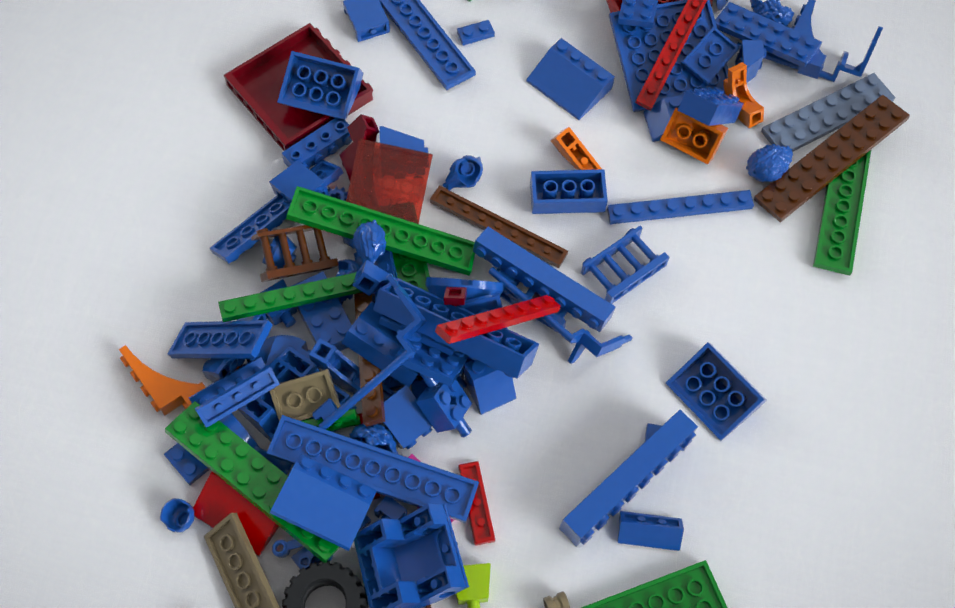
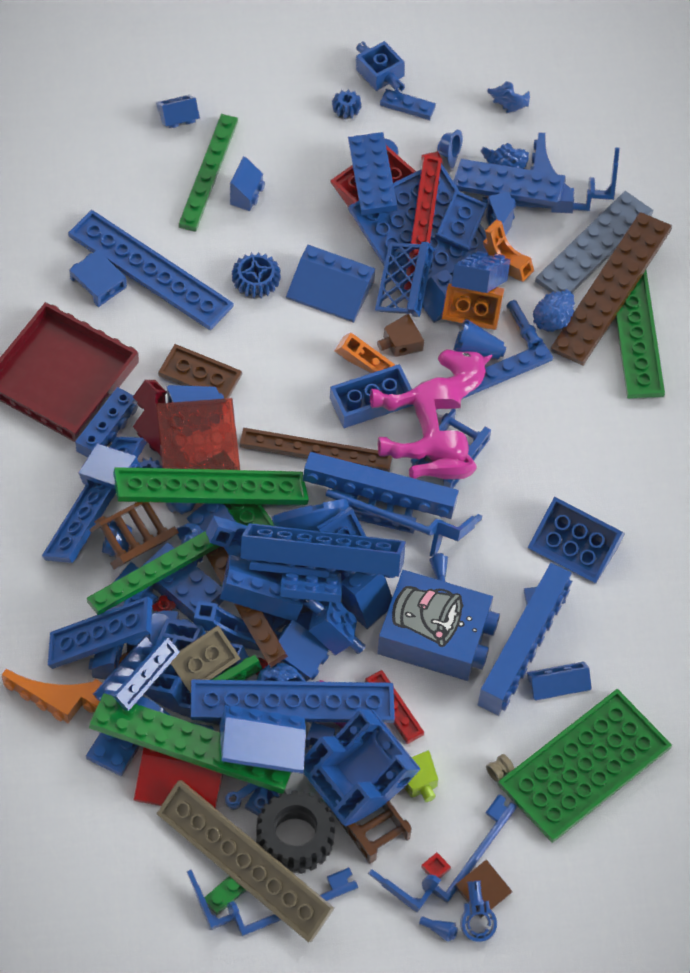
camera: 20 degrees left, 5 degrees down
(177, 515) = (125, 802): blue hair -> none
(300, 325) = (163, 601): none -> red plate
(320, 85) = (87, 363): blue slope -> none
(328, 410) = (233, 662): blue piece -> none
(369, 241) = (205, 499): blue hair -> none
(420, 122) = (195, 369): none -> reddish brown plate
(455, 296) = (312, 522): dark red plate -> none
(464, 173) = (263, 408): blue hair -> none
(475, 32) = (215, 262): blue plate -> none
(496, 48) = (253, 266): none -> blue gear
(497, 319) = (360, 529): red plate -> none
(547, 435) = (437, 626): none -> blue brick
(572, 374) = (439, 565): none -> blue cone
(617, 146) = (401, 337): none -> reddish brown torso
(619, 262) = (444, 448): none -> dark pink animal
(651, 97) = (419, 276): none -> blue fence
(686, 171) = (478, 340): none -> blue cone
(738, 174) = (527, 331): none -> blue pin

